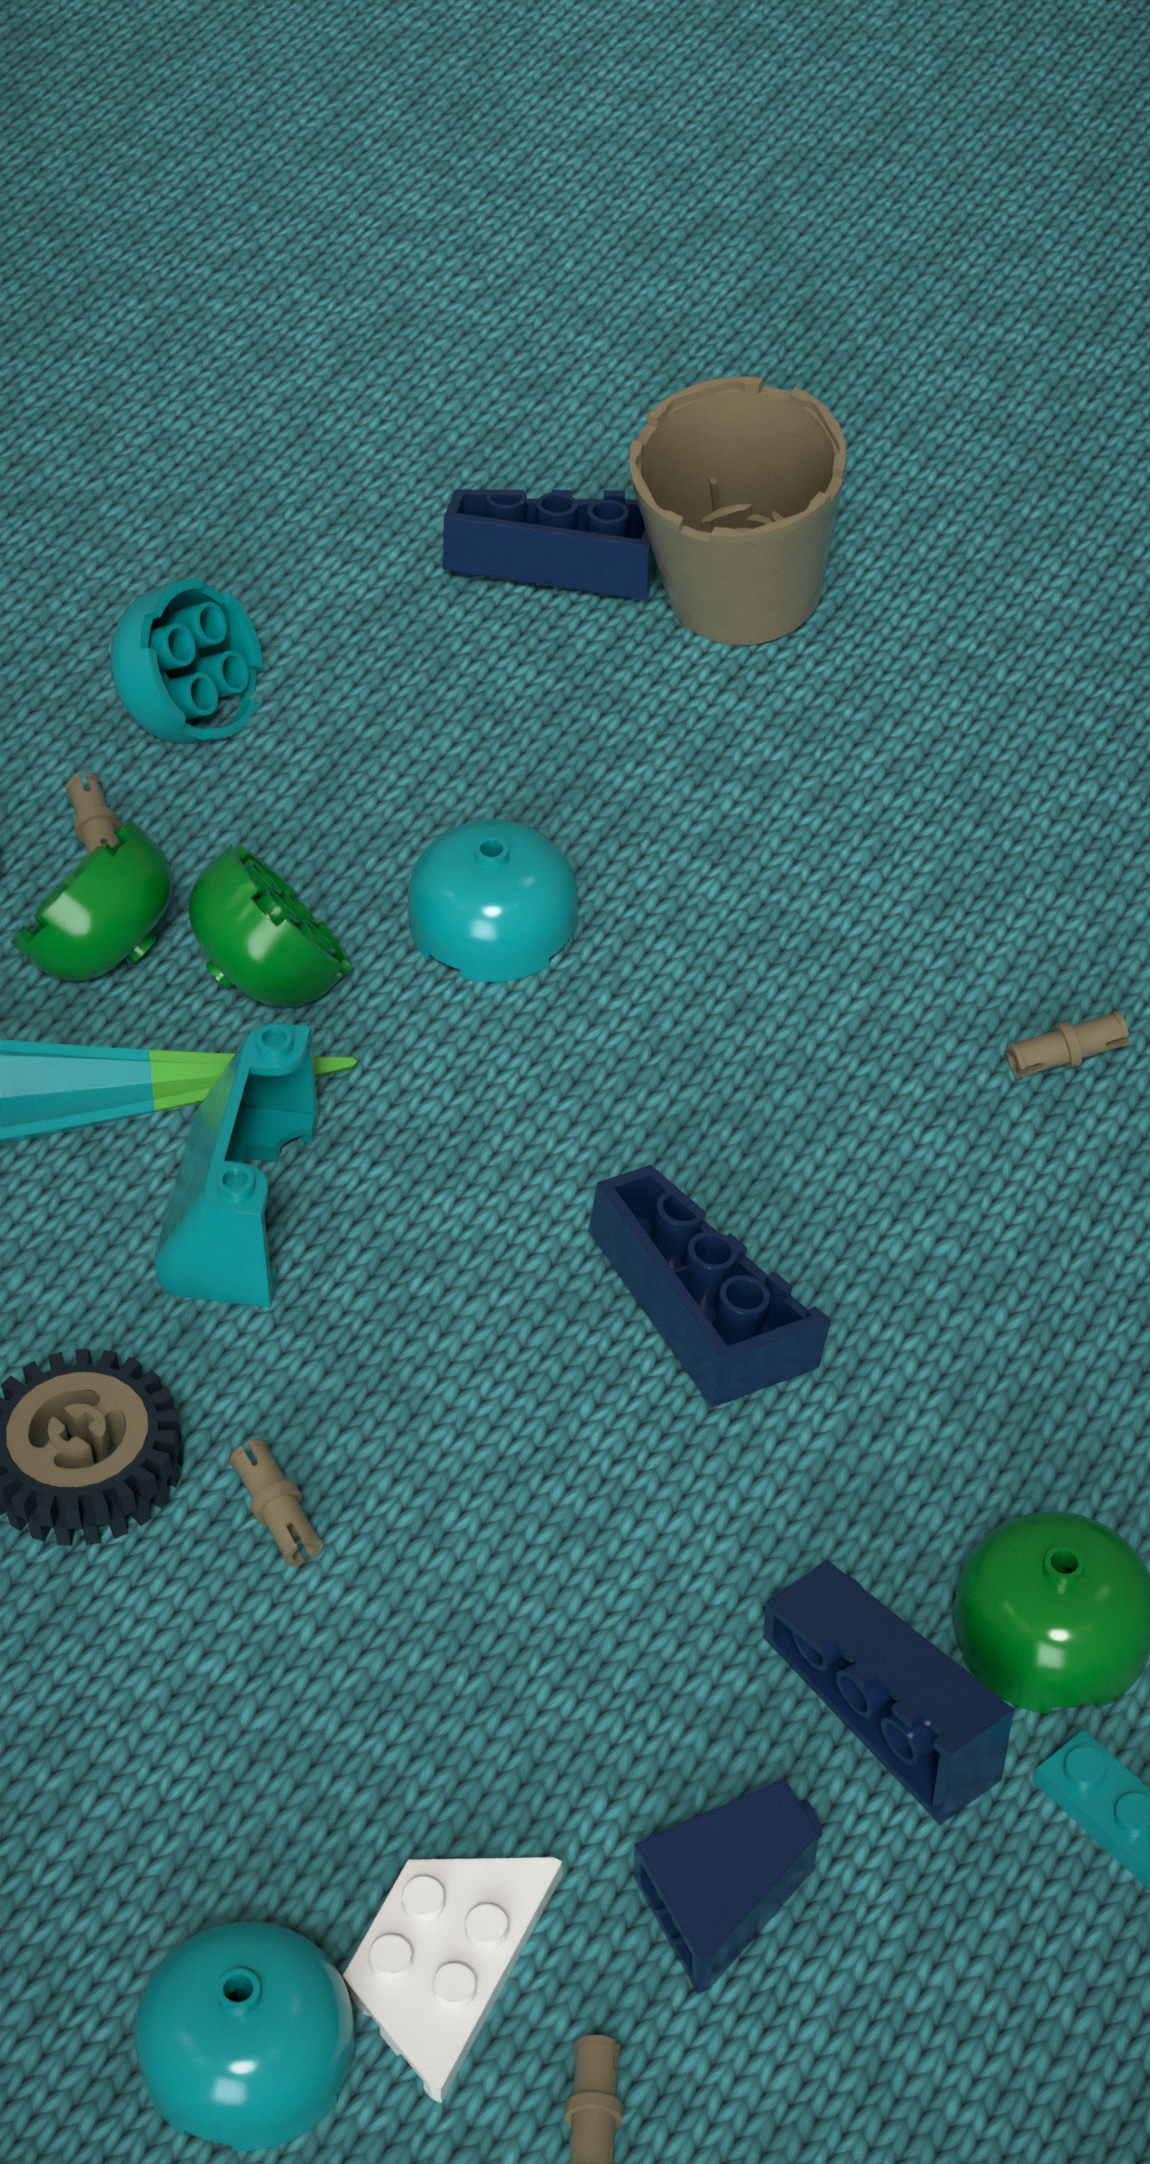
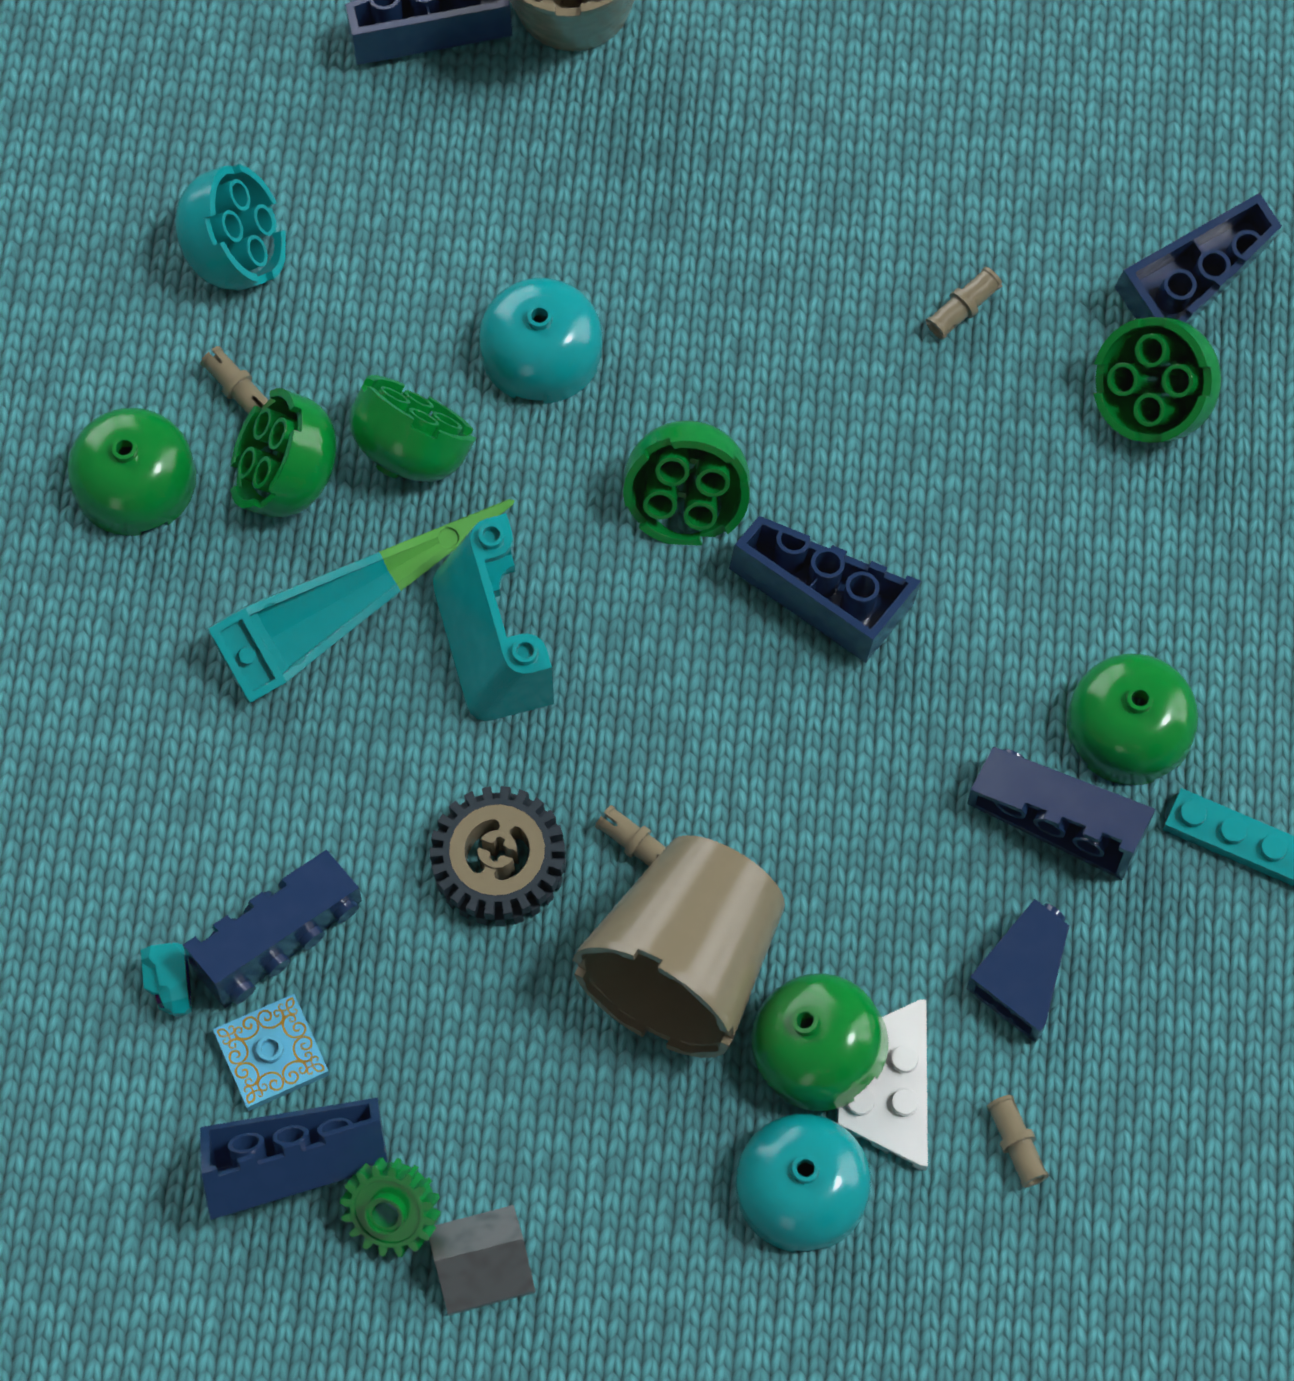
camera: 25 degrees left, 20 degrees up
(241, 1627) = (684, 946): none -> dark tan cone
(370, 1843) = (819, 1041): none -> green cylinder
(584, 1077) = (688, 463): none -> green cylinder

